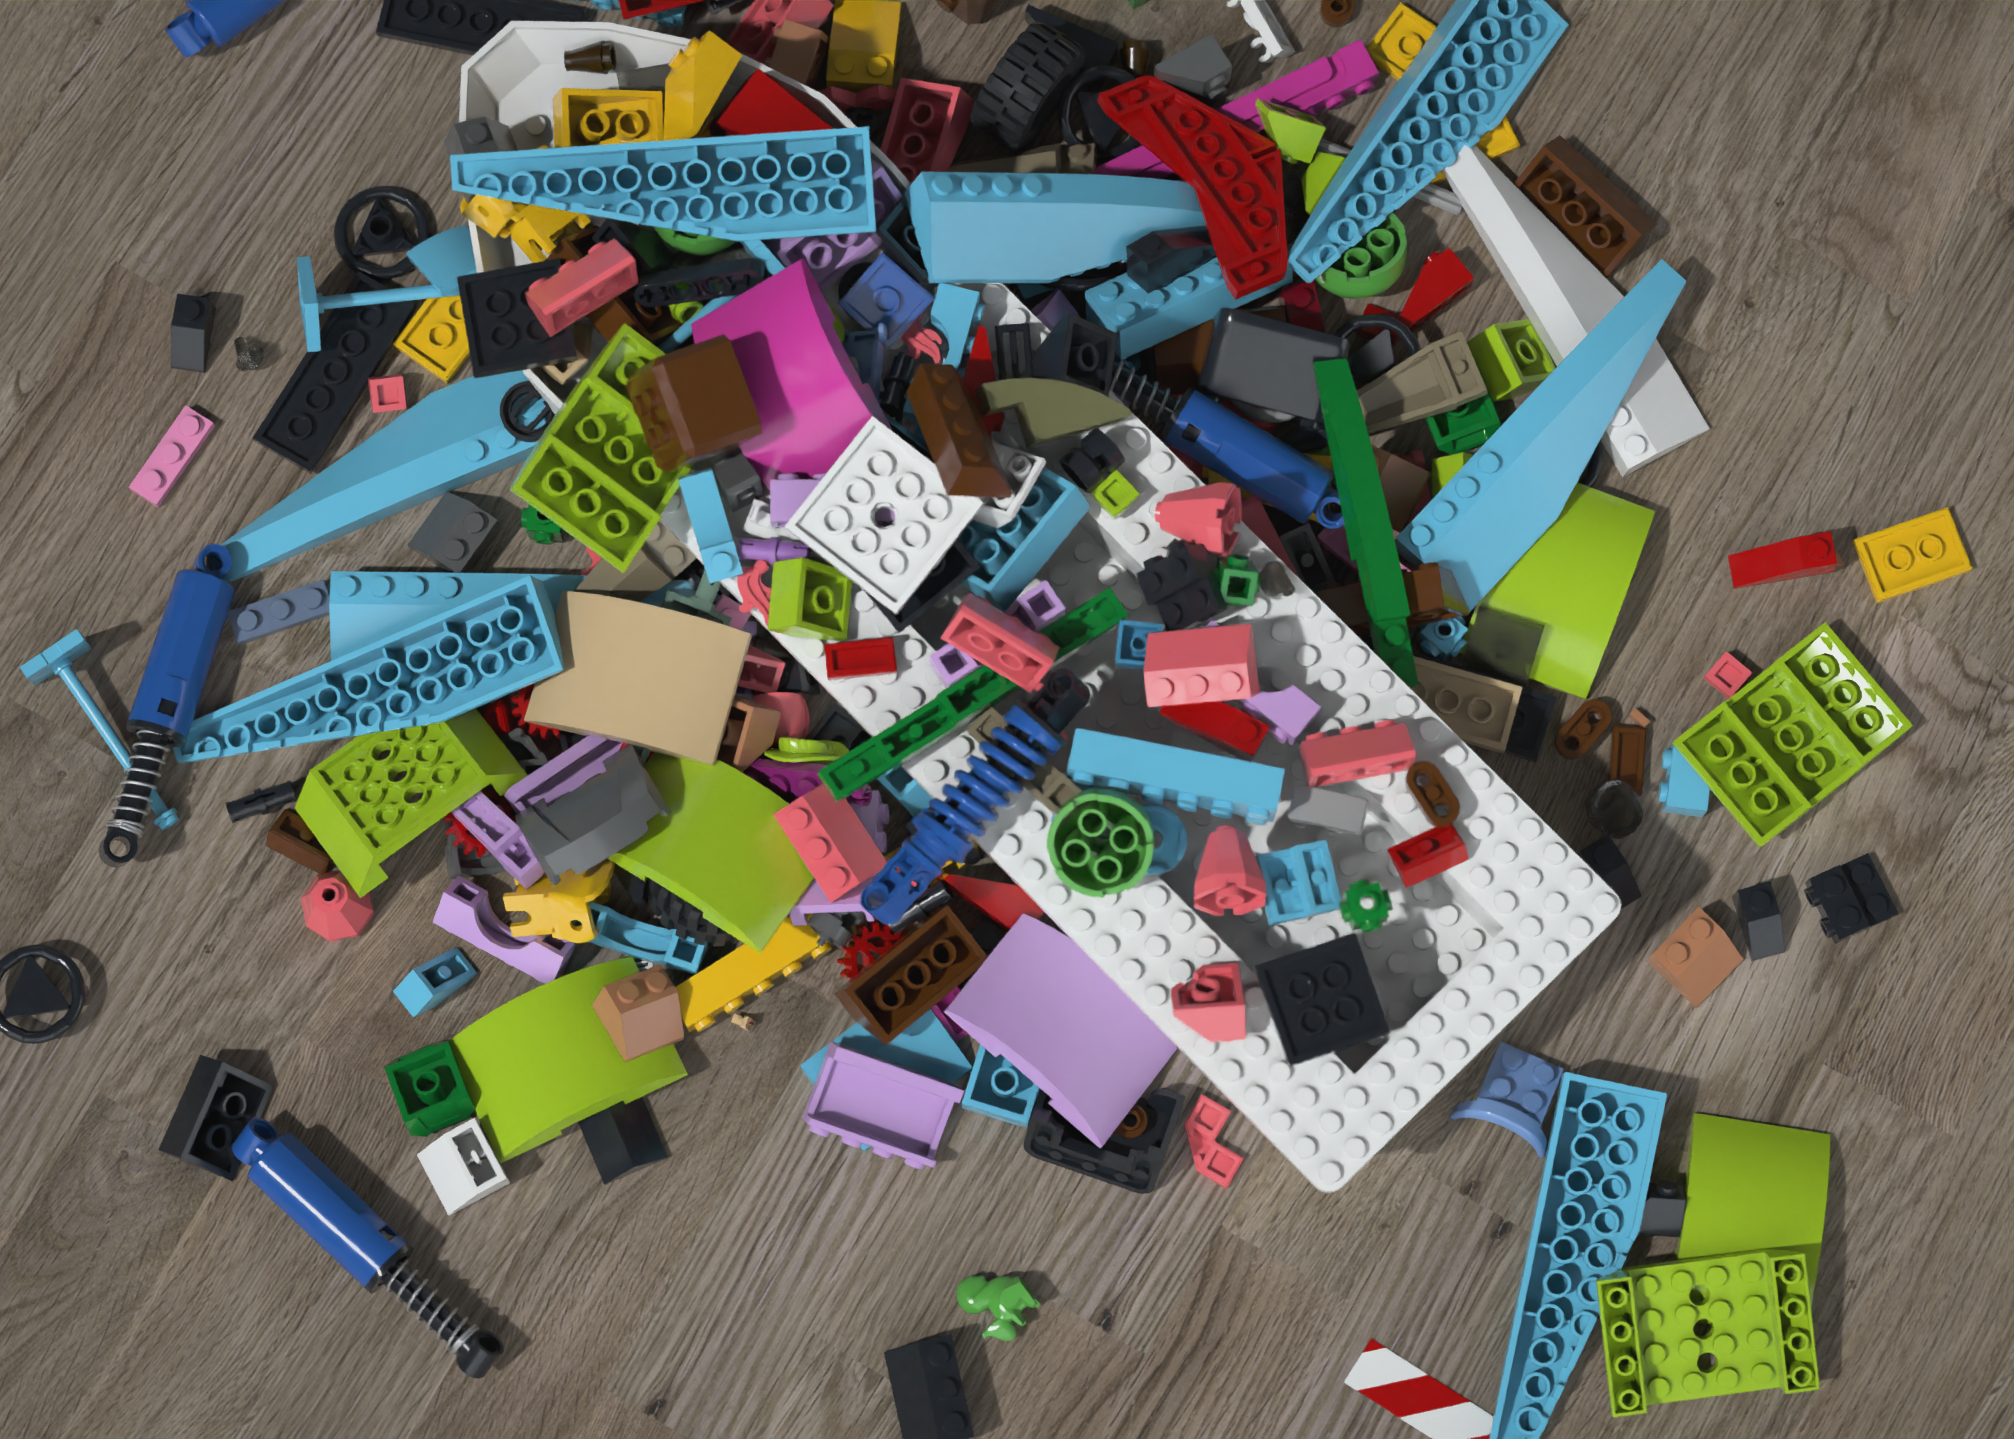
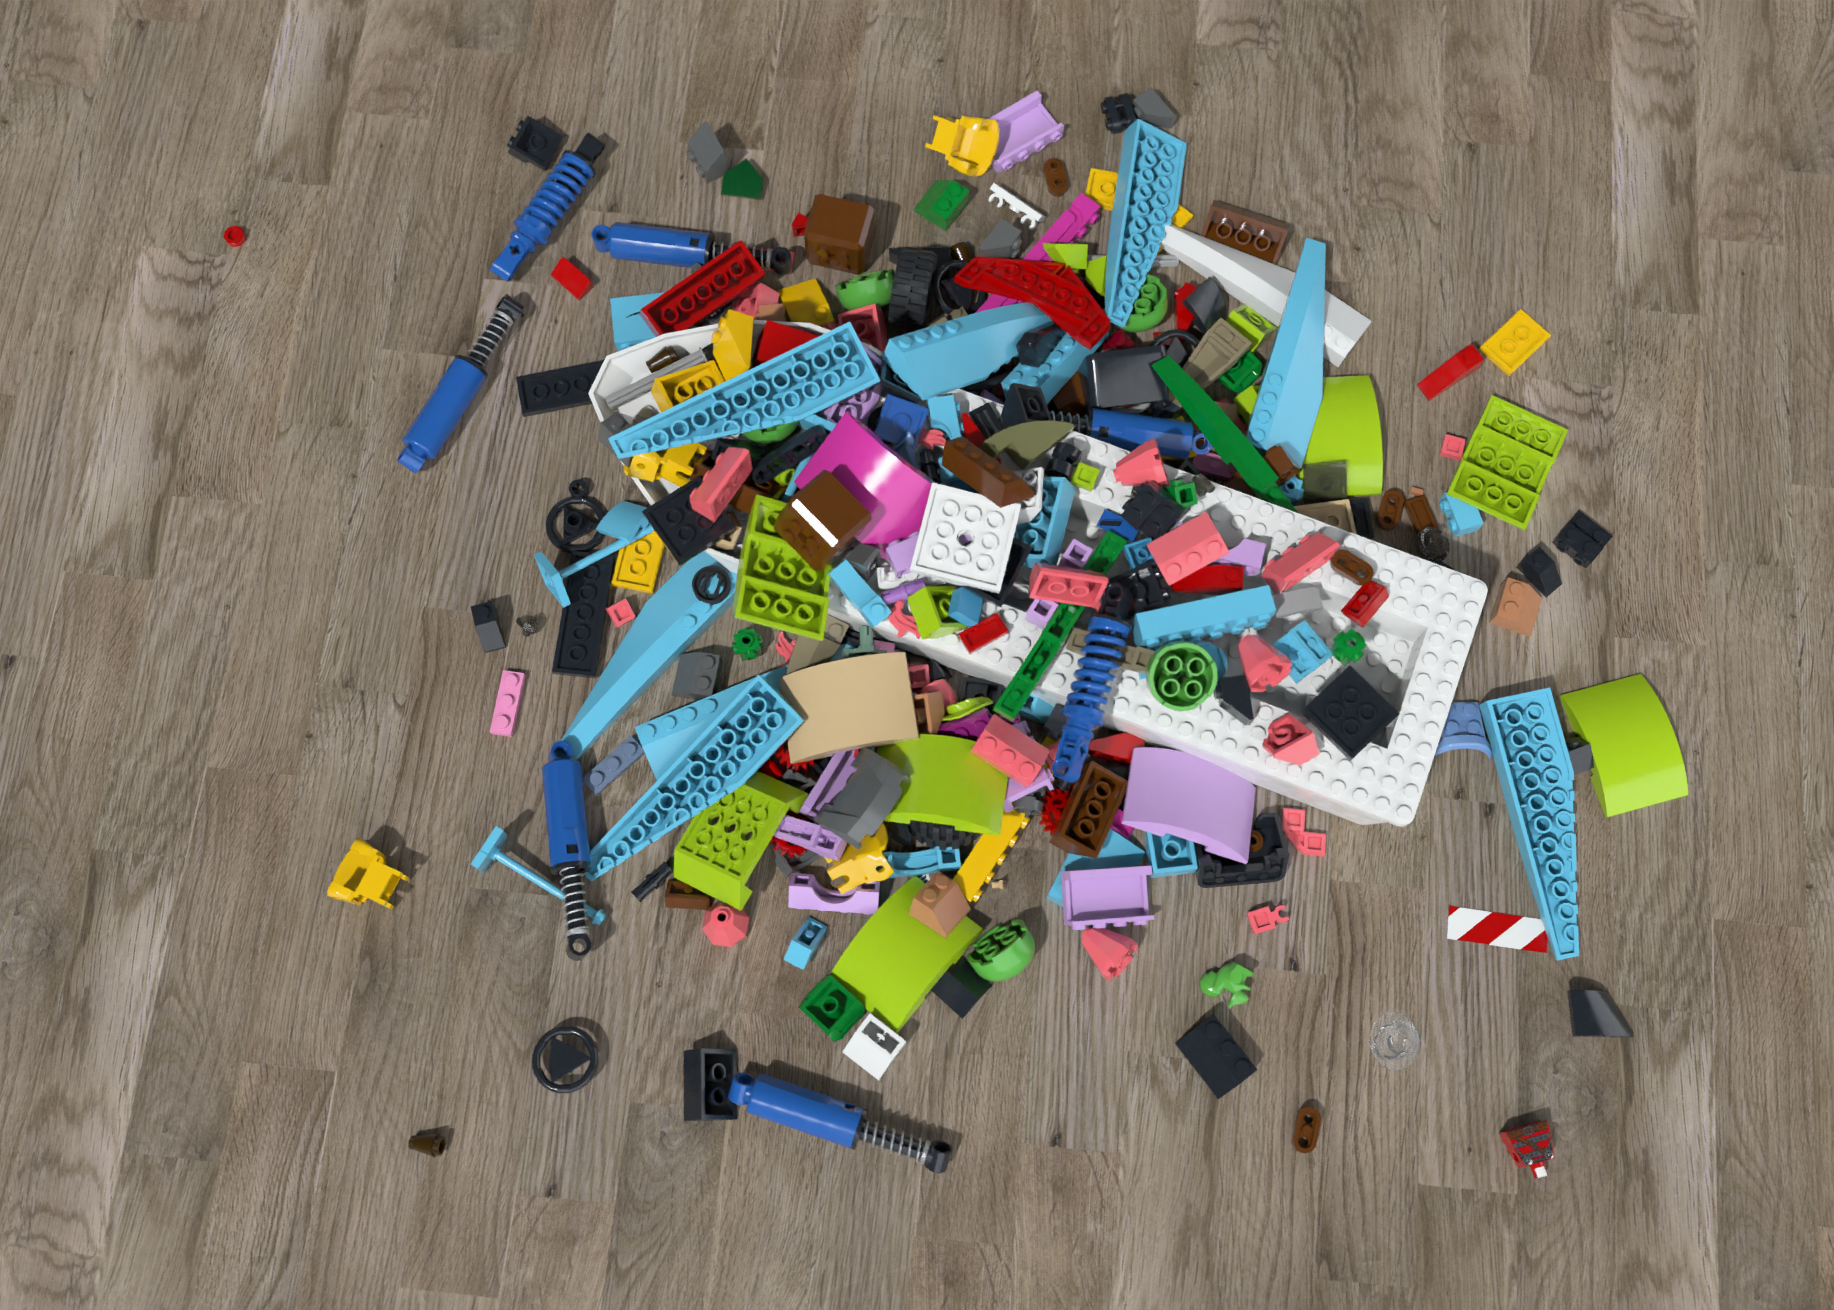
camera: 25 degrees left, 5 degrees down
(405, 172) = (574, 486): none -> black bush
(550, 84) = (646, 383): none -> light grey axle
(705, 1132) = (1009, 961): none -> bright green cylinder
(849, 611) = (965, 607): none -> dark azure piece
(849, 1183) = (1108, 950): none -> coral cone
(957, 60) = (866, 290): none -> bright green cylinder
(1091, 1238) = (1263, 920): none -> coral plate
(1115, 696) = (1145, 588): none -> black plate
(1124, 582) = (1117, 525): none -> blue sticker
(1168, 905) = (1235, 698): none -> black slope
(1460, 300) = (1206, 305): none -> black slope
(1757, 1329) = (1666, 803): lime slope -> none

